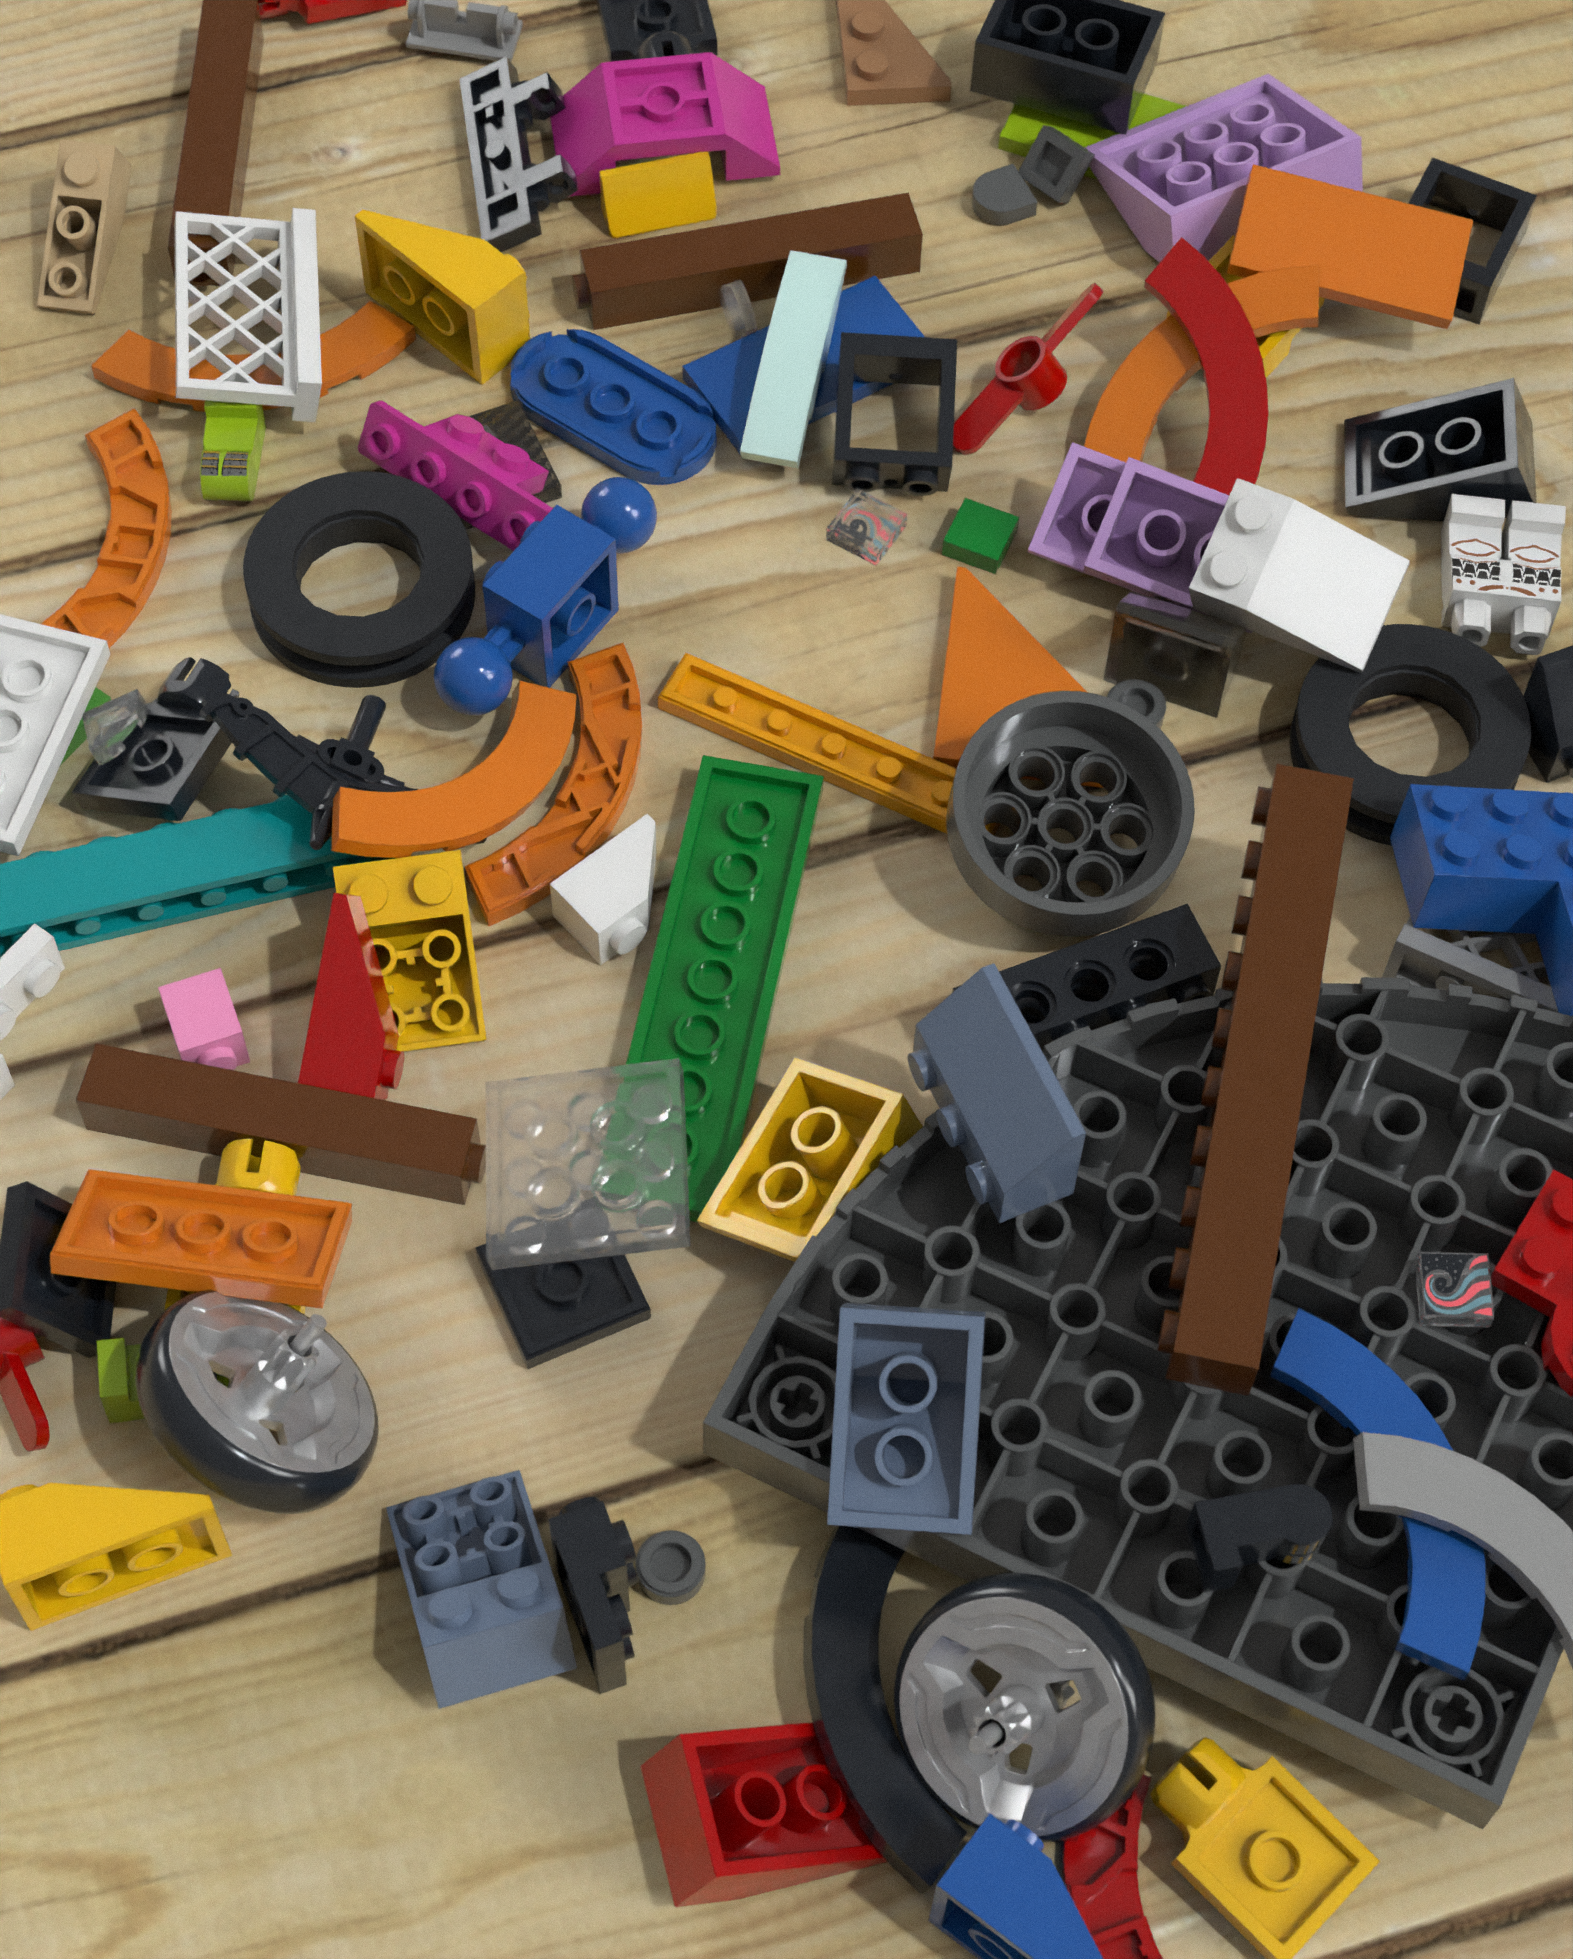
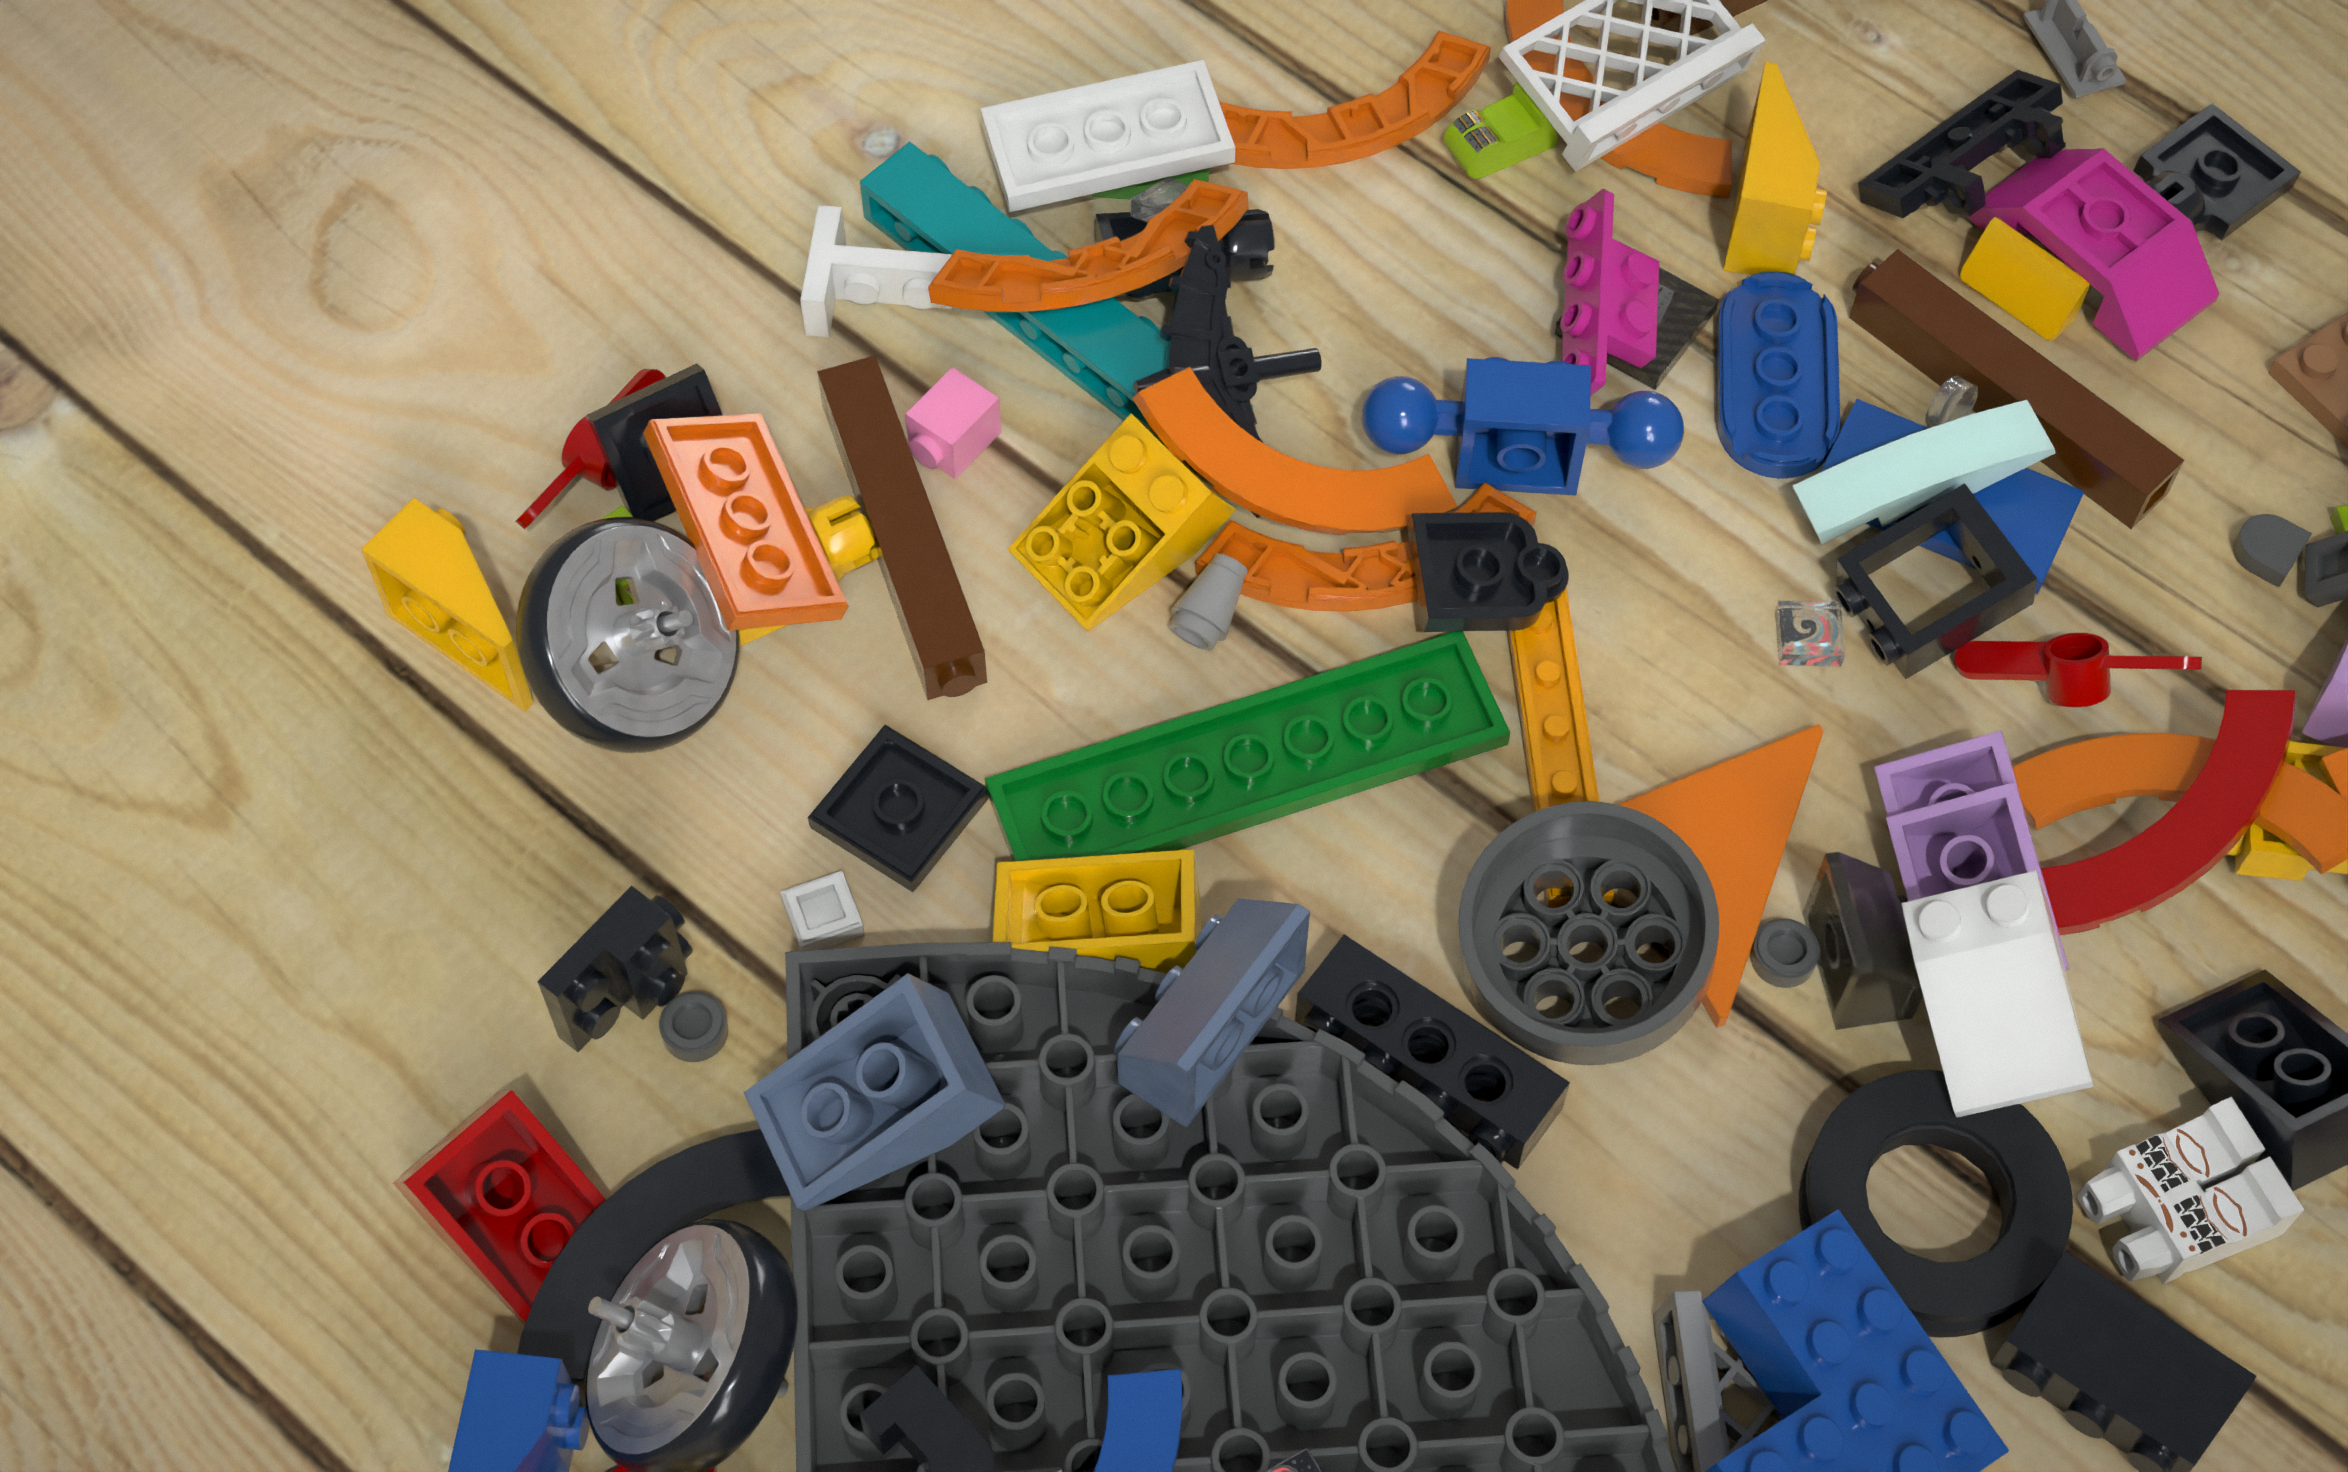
camera: 60 degrees right, 0 degrees up
(156, 820) = (1091, 271): none -> orange tile
(346, 511) = (1456, 223): black tyre -> none
(351, 1019) = (1021, 507): red slope -> none
(481, 1589) = (562, 882): sand blue slope -> none
(542, 925) = (1208, 605): none -> light grey cone
(586, 1164) = (997, 754): clear plate -> none
(610, 893) = (1282, 638): white slope -> none
(627, 1401) = (822, 912): none -> white tile
(661, 708) = (1482, 571): none -> black plate
(980, 535) = (1873, 728): green tile -> none
(1259, 1085) = (1401, 1213): reddish brown brick -> none

